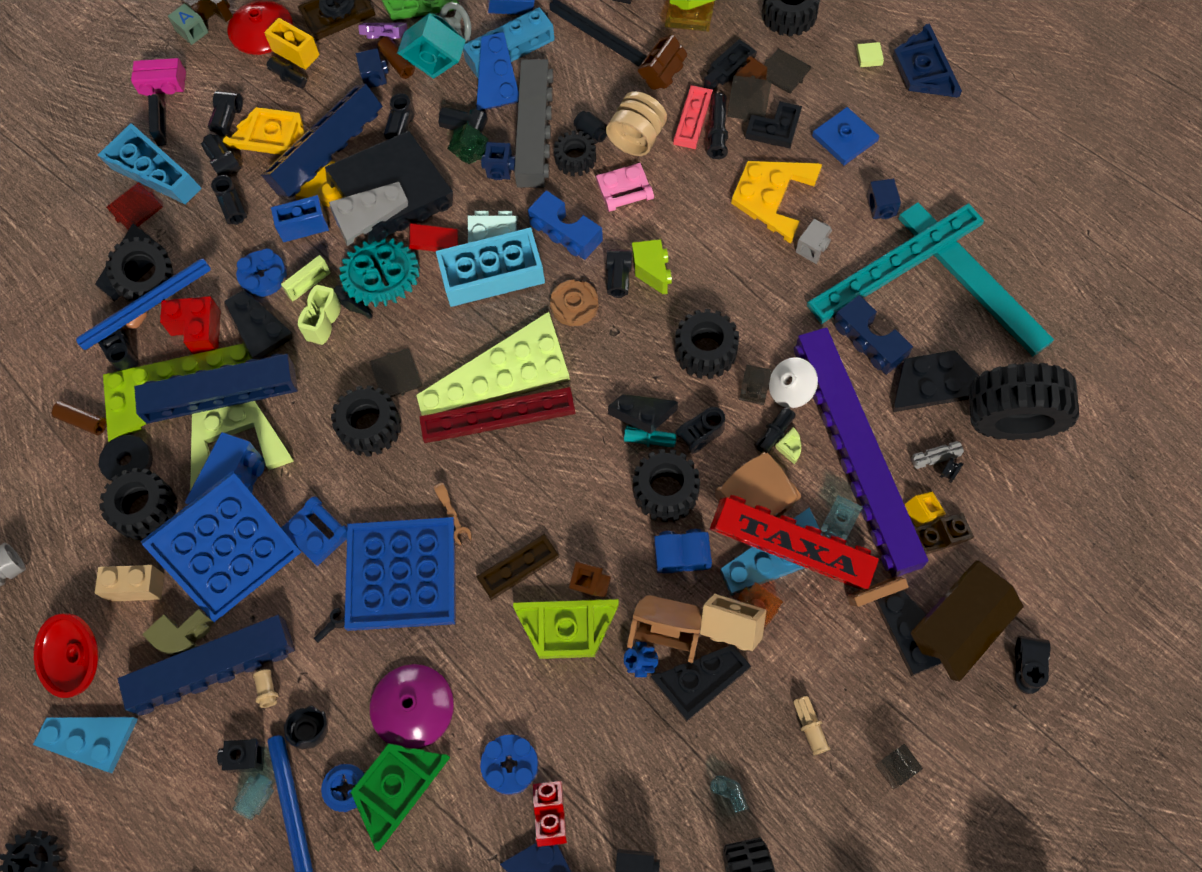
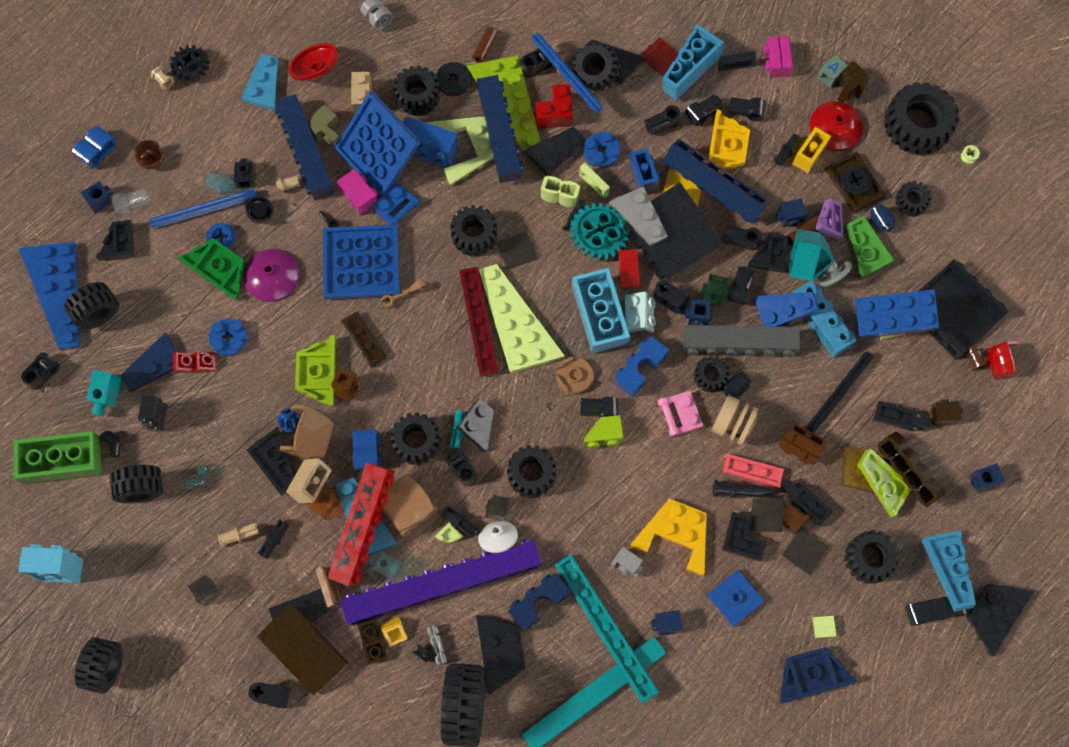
camera: 85 degrees right, 5 degrees up
(290, 582) = (357, 191): none -> dark pink brick
(423, 91) = (770, 254): none -> black wing
(473, 194) = (672, 297): none -> black piece
(815, 674) = (273, 539): none -> black pin

